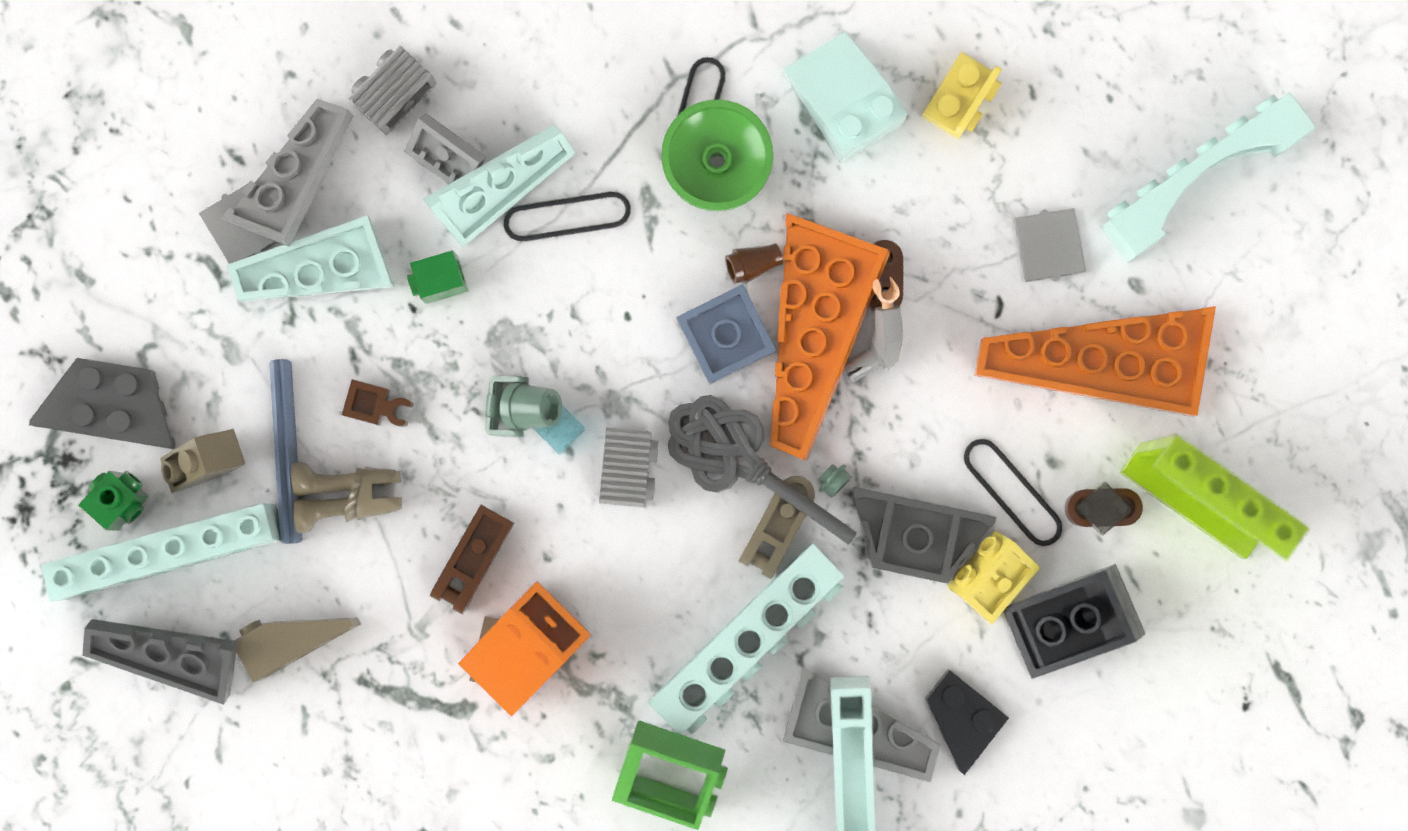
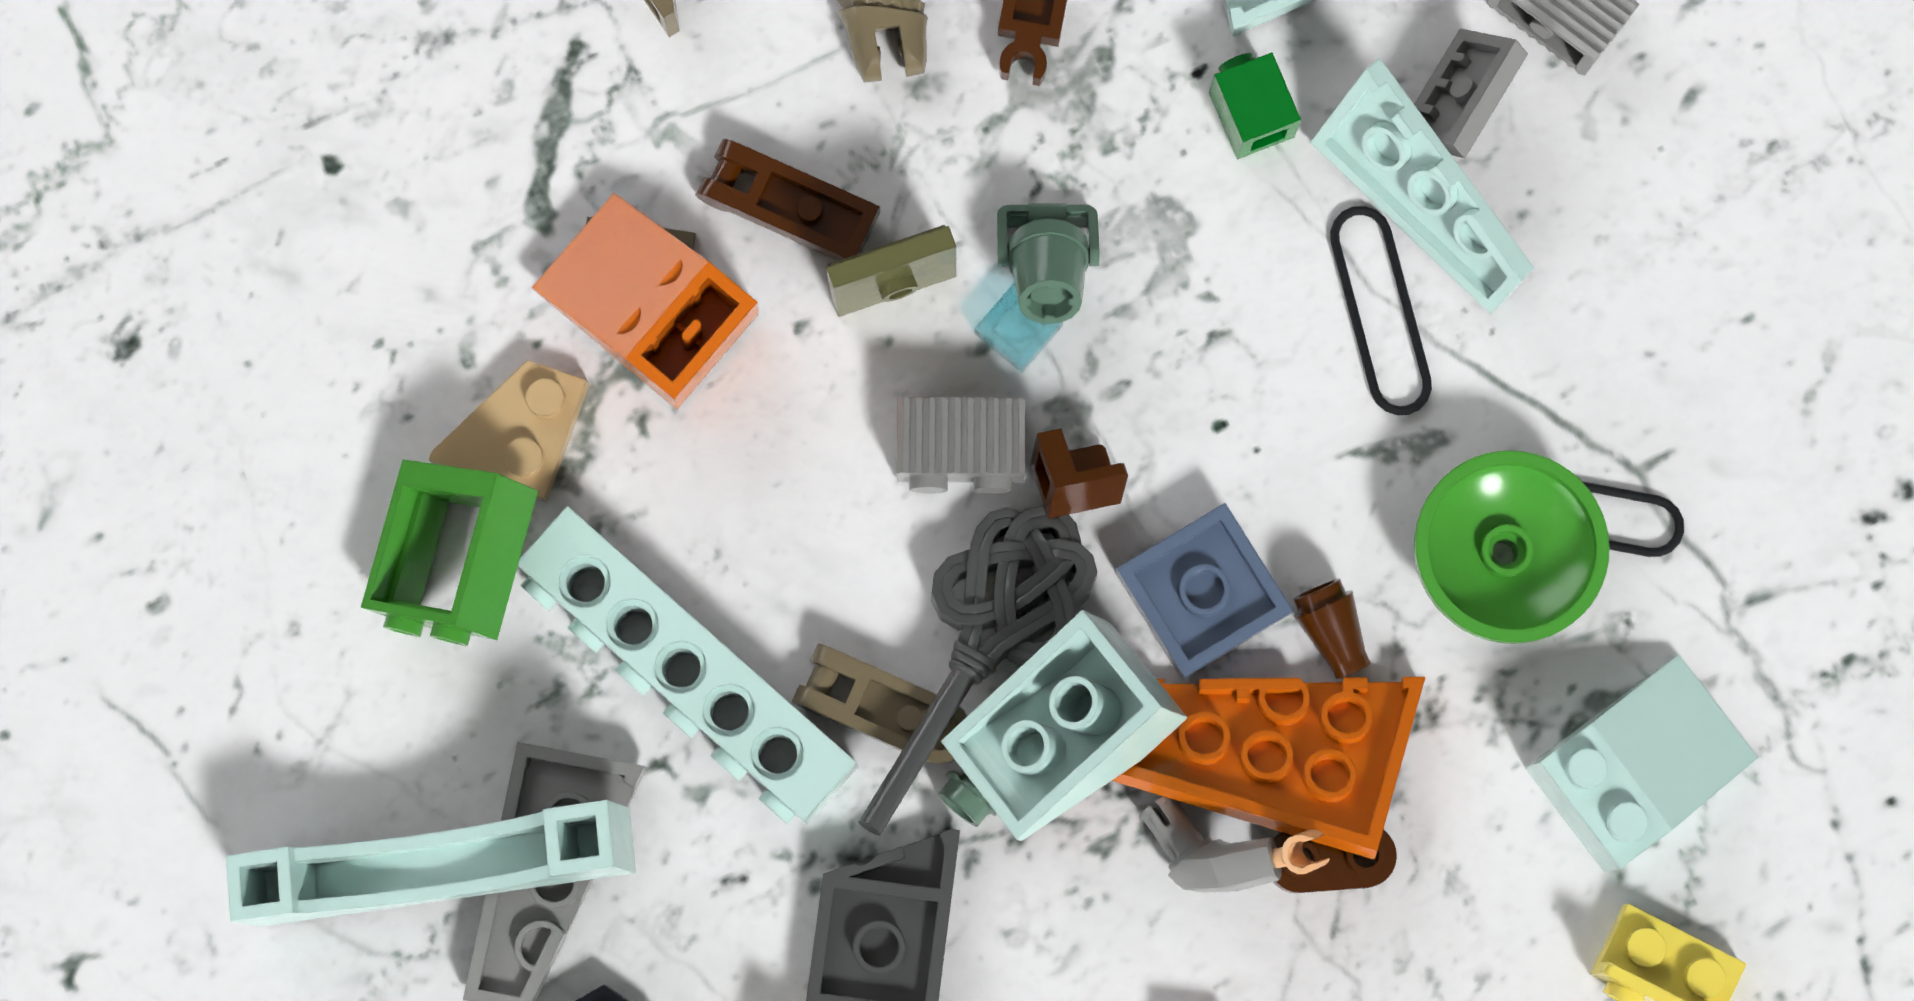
camera: 85 degrees right, 5 degrees down
(523, 498) = (892, 270): none -> olive plate
(597, 730) = (519, 428): none -> tan wing
(653, 402) = (1075, 478): none -> reddish brown panel
(802, 421) = (1063, 725): none -> light aqua slope

